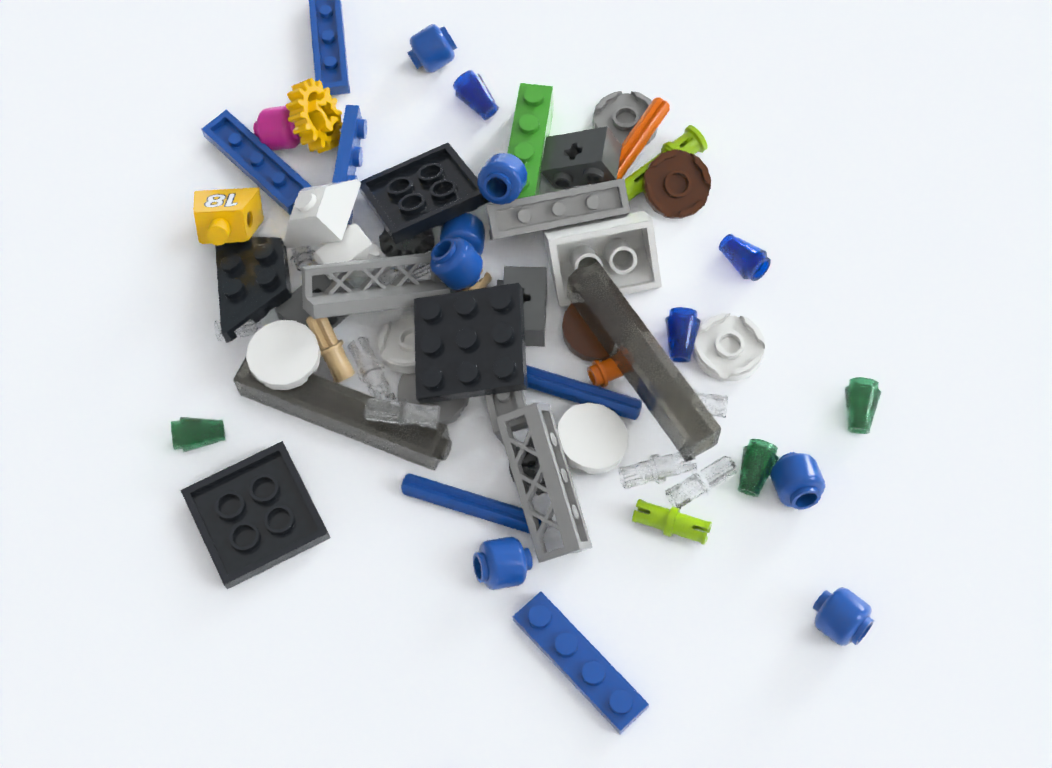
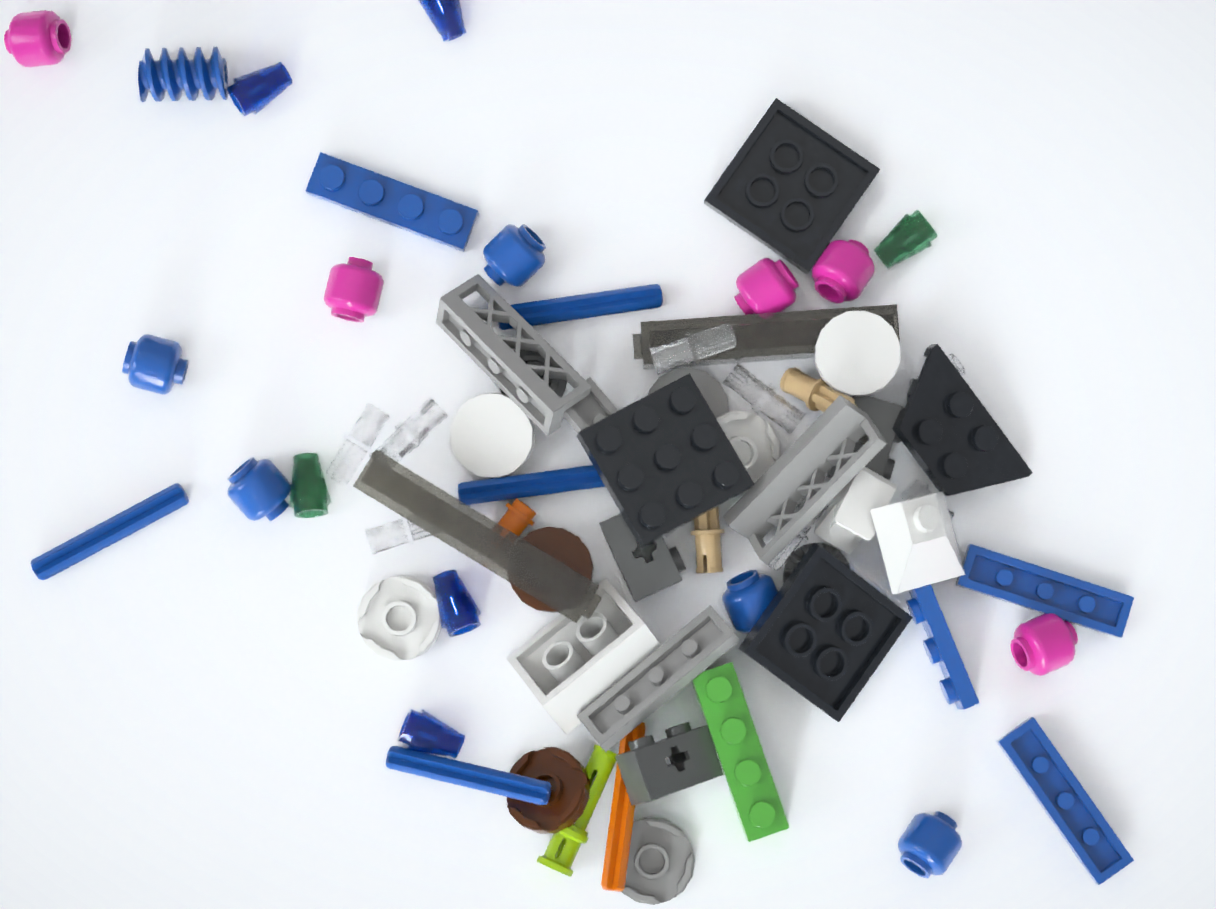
camera: 145 degrees right, 20 degrees up
(224, 217) = (1028, 493): yellow torso -> none
(256, 429) = (843, 271): none -> dark pink head
(314, 115) = (1005, 669): yellow gear -> none
(321, 444) = (766, 287): none -> dark pink head
(456, 263) = (733, 551): blue head -> none
(475, 94) = (842, 805): clear blue cone -> none
(502, 178) = (730, 665): blue head -> none
(647, 596) = (353, 290): none -> dark pink head
(672, 521) = (367, 385): lime pin -> none
(728, 213) = (468, 775): none -> blue axle
(861, 403) = (229, 613): clear green cone -> none
(935, 508) = (109, 531): none -> blue axle

